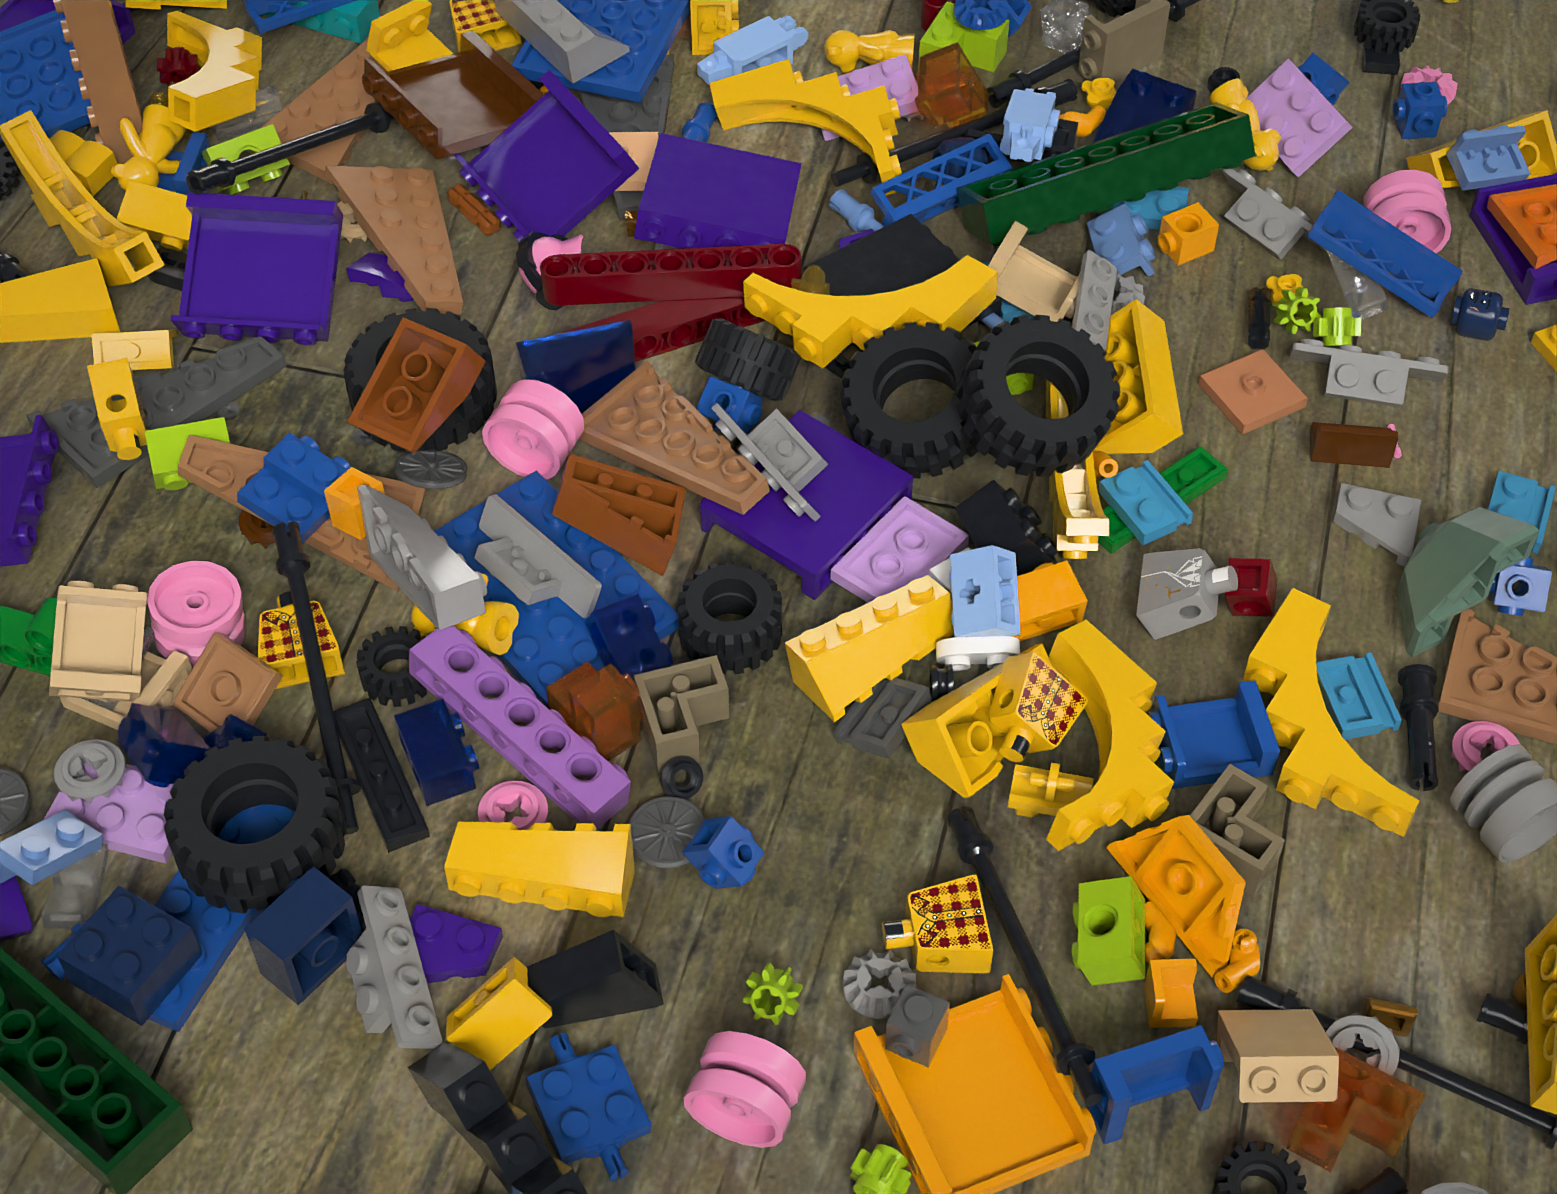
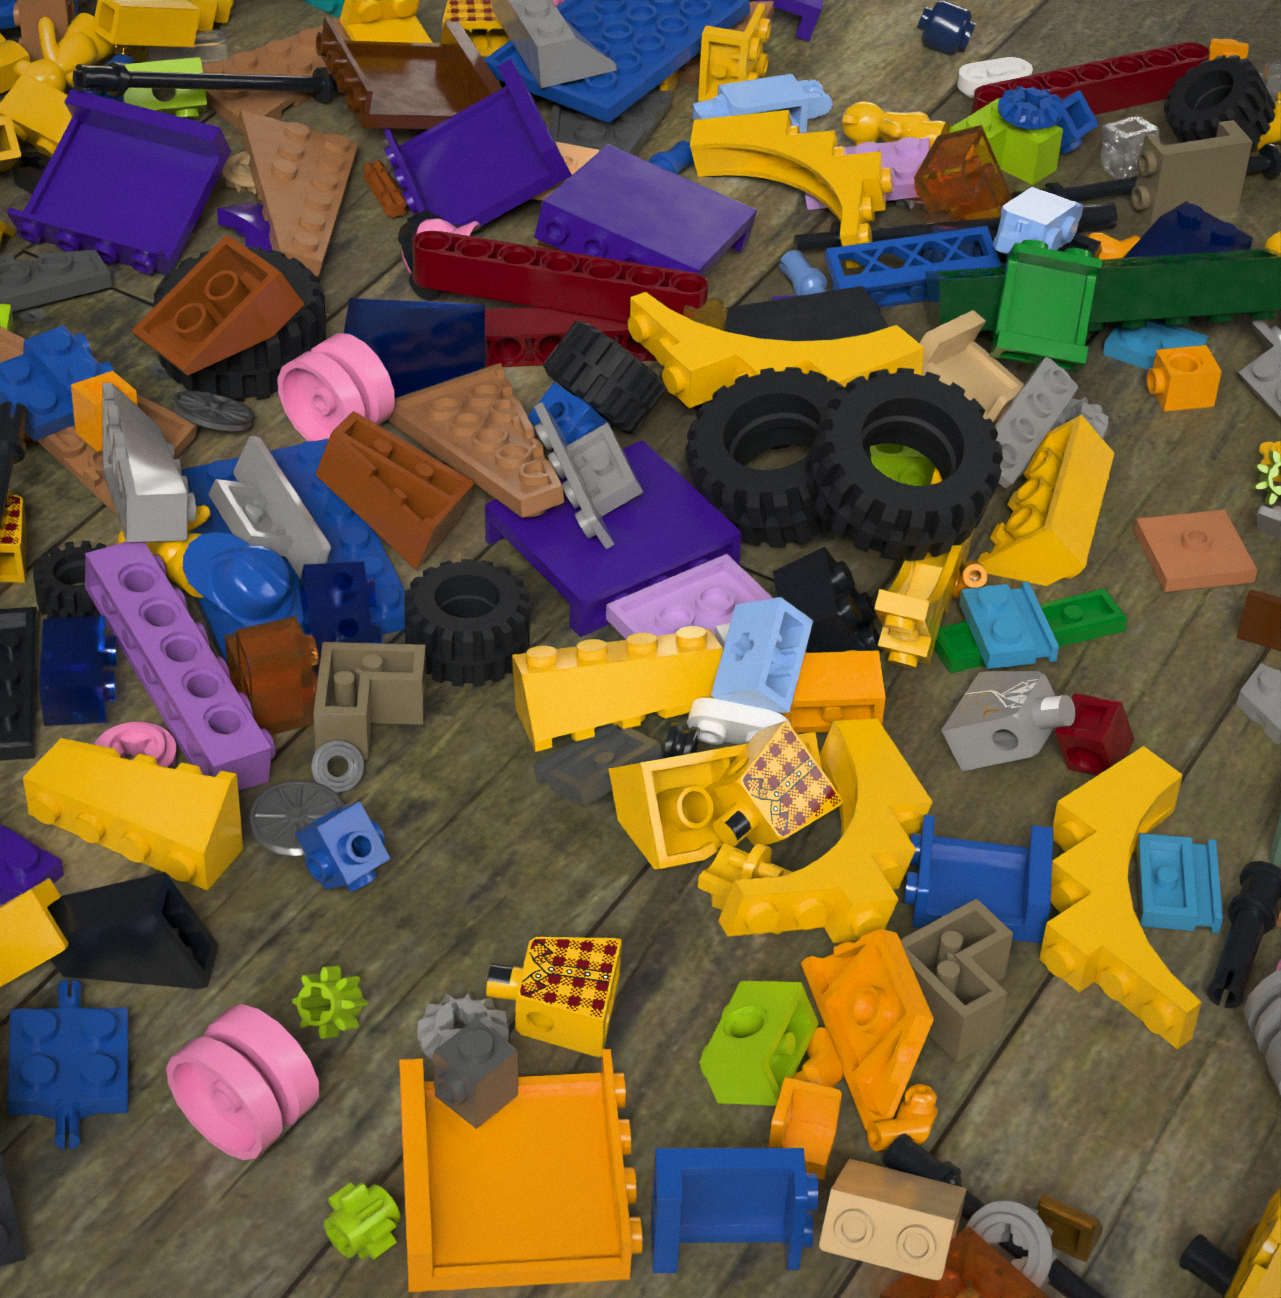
camera: 15 degrees right, 10 degrees down
(538, 633) = (239, 578): none -> blue piece
(1072, 205) = (1045, 305): none -> green panel
(1073, 1057) = (635, 1152): black bar -> none
(1099, 92) = (1141, 221): yellow plate -> none
(1121, 240) = (1108, 370): medium blue bracket -> none
(1259, 318) = (1235, 480): black axle -> none

